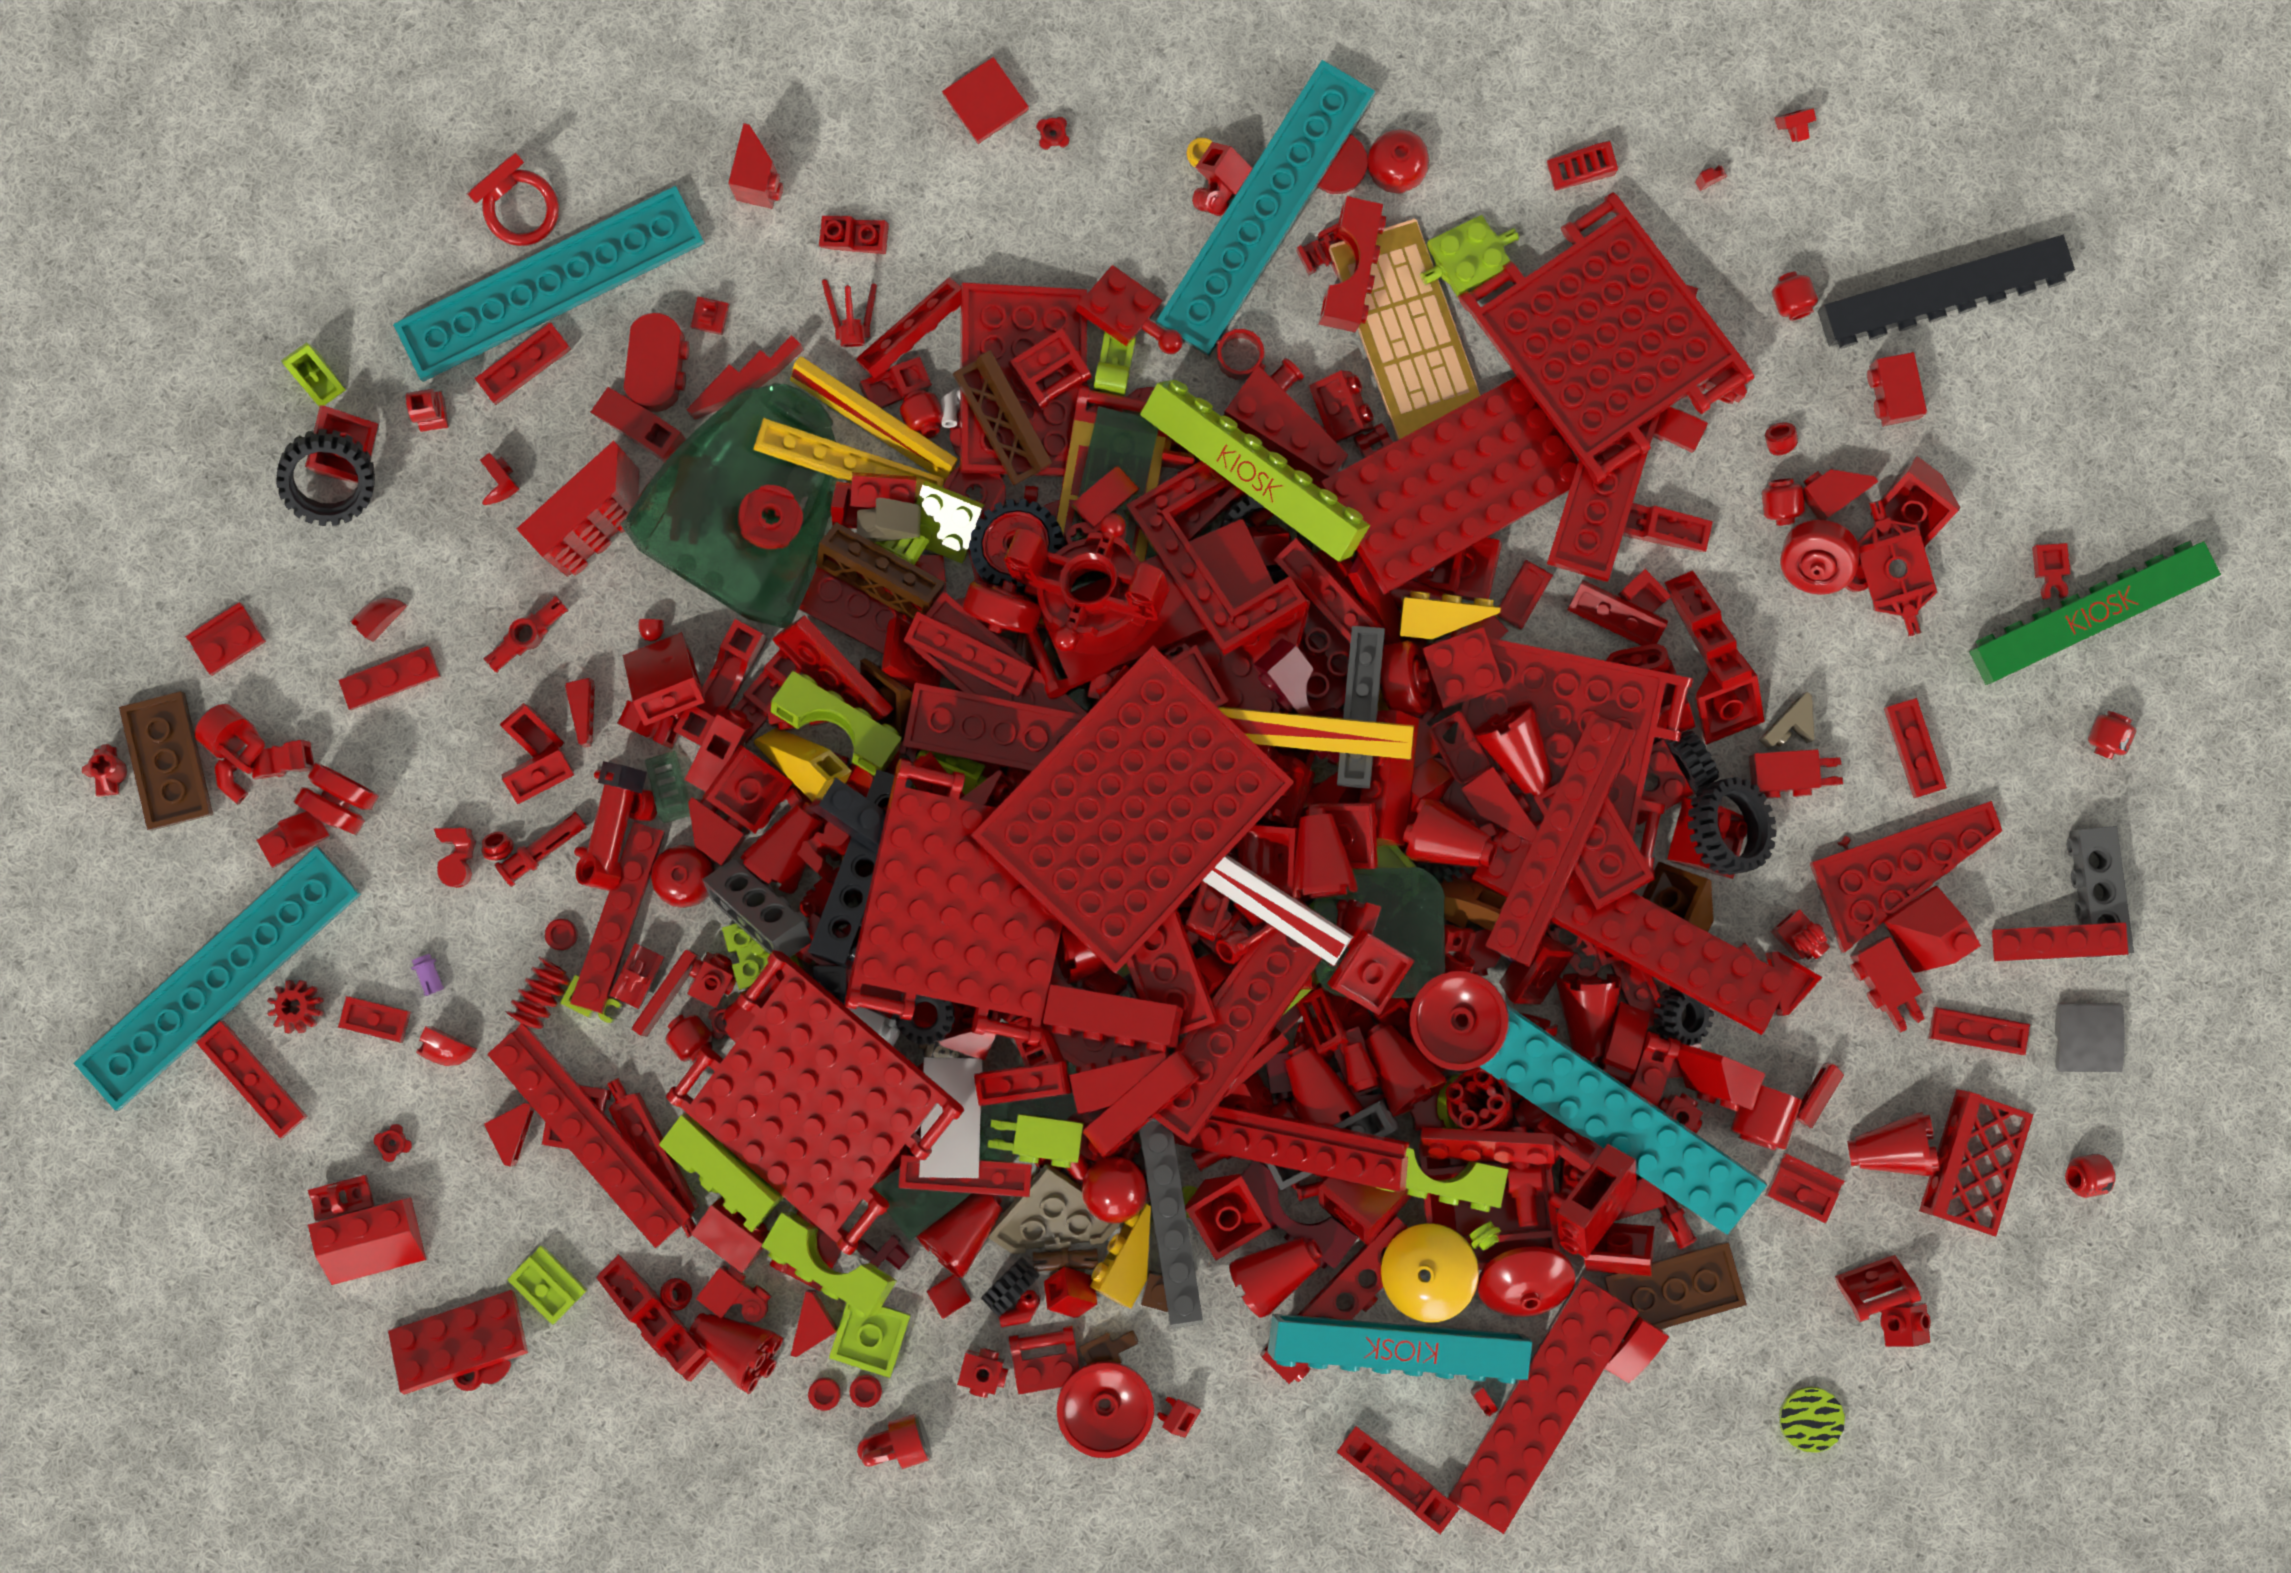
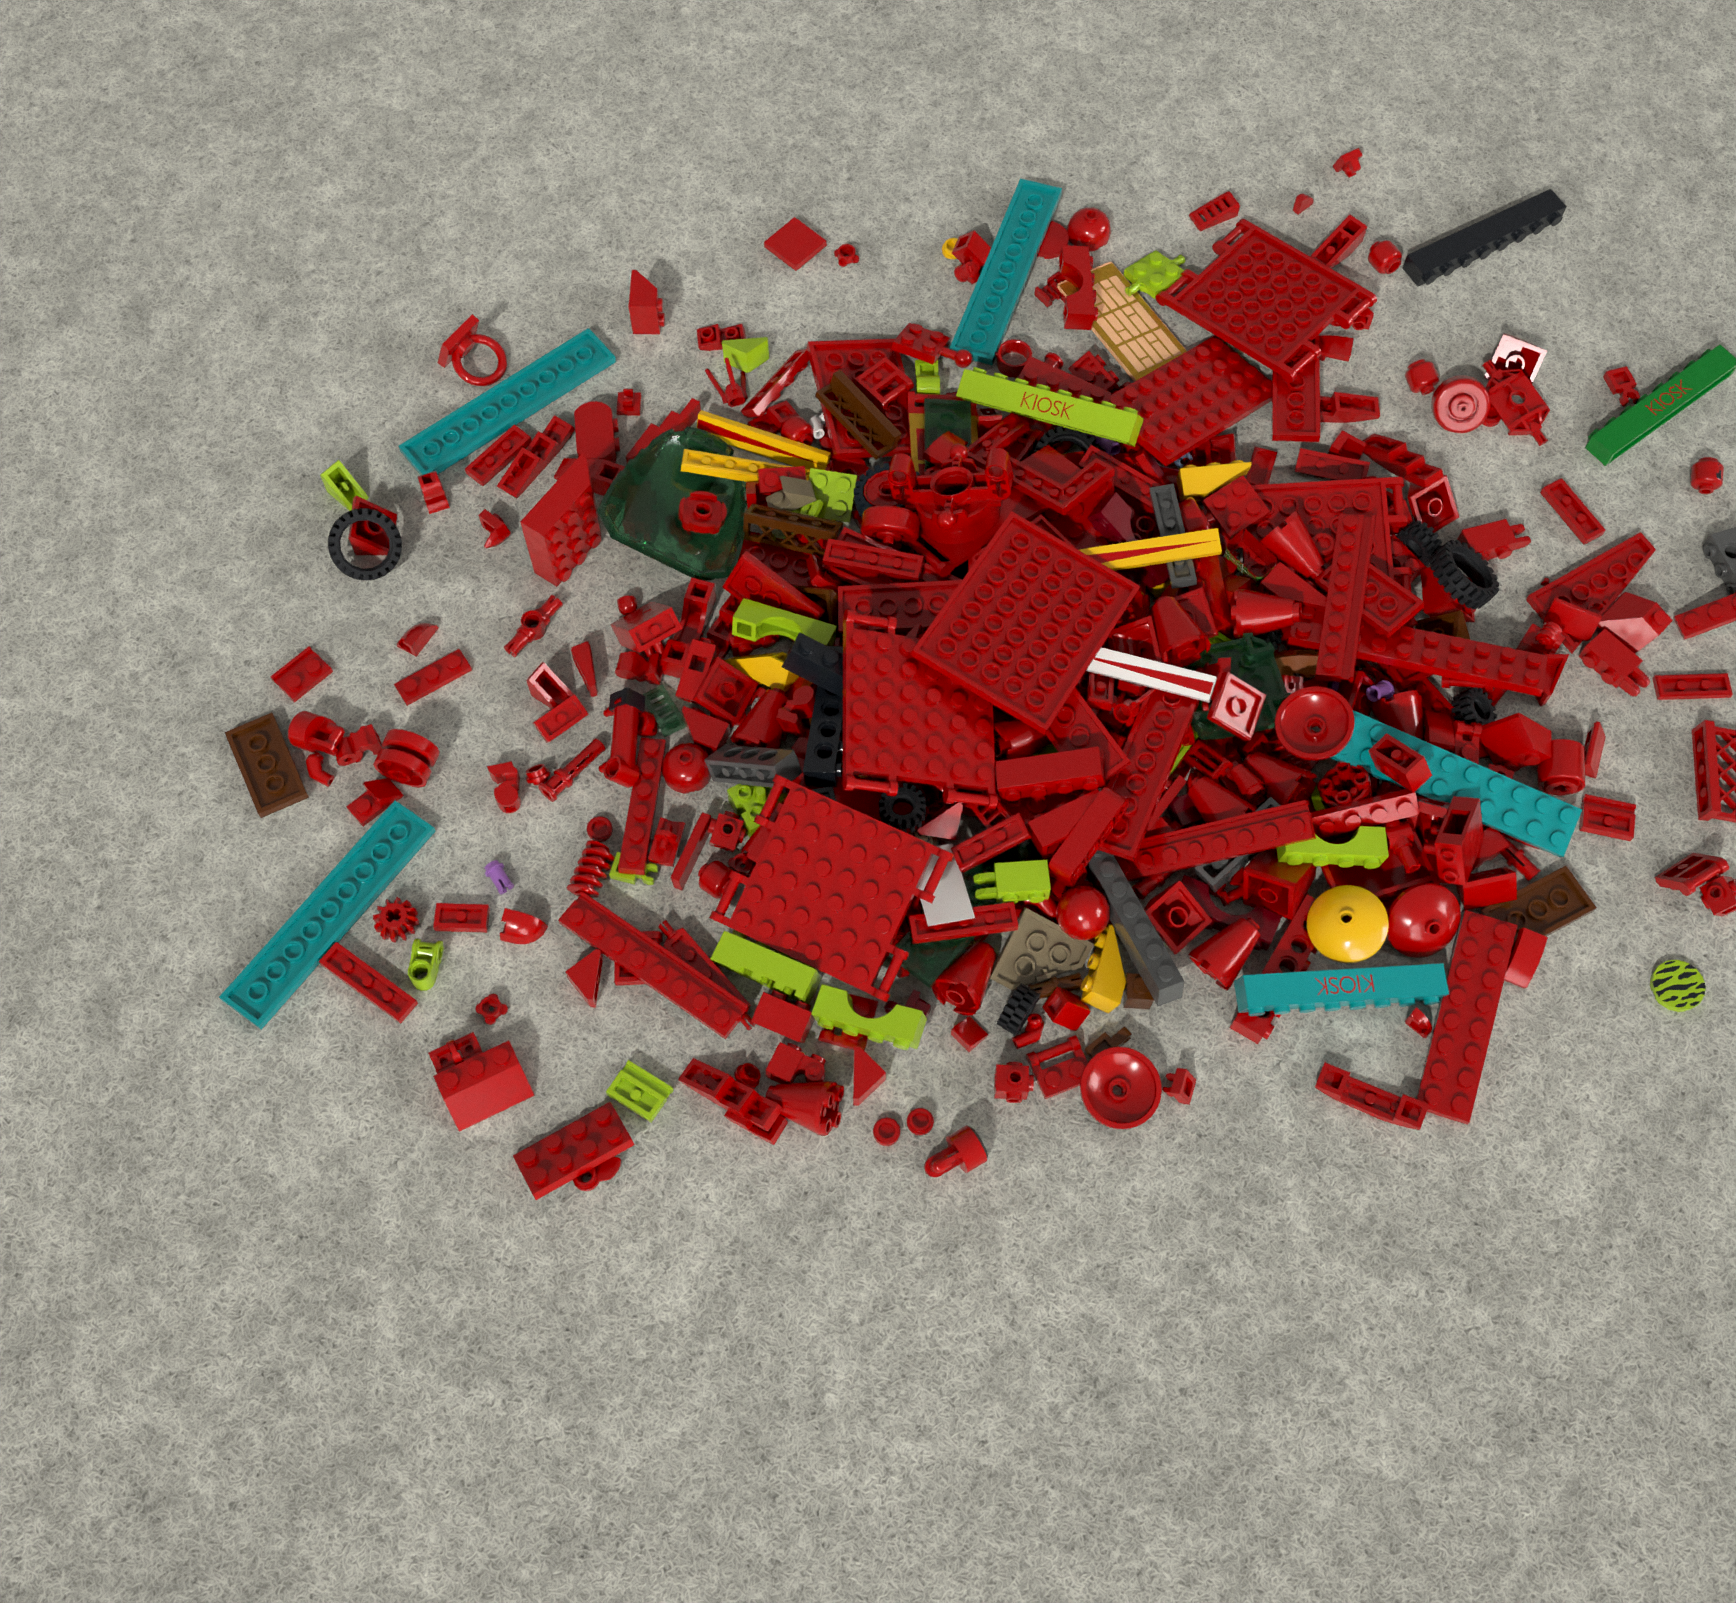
camera: 10 degrees left, 20 degrees down
(106, 770) = (219, 780): red piece -> none
(322, 1067) = (425, 958): none -> lime piece
(572, 376) = (536, 457): none -> red slope
(870, 1340) = (913, 1076): lime plate -> none
(880, 272) = (746, 353): none -> lime slope
(1485, 1236) = (1382, 884): lime plate -> none
(1544, 1104) = (1400, 763): none -> red brick
(1576, 964) = (1381, 690): none -> medium lavender pin
(1733, 267) = (1341, 242): none -> red slope
(1781, 438) = (1405, 340): red tile -> none
(1797, 717) = (1483, 508): dark tan slope -> none
(1834, 490) = (1456, 361): red slope -> none
(1851, 915) = (1572, 619): none -> red slope
(1897, 389) = (1475, 296): red brick -> none
(1897, 1147) = (1668, 770): red cone -> none

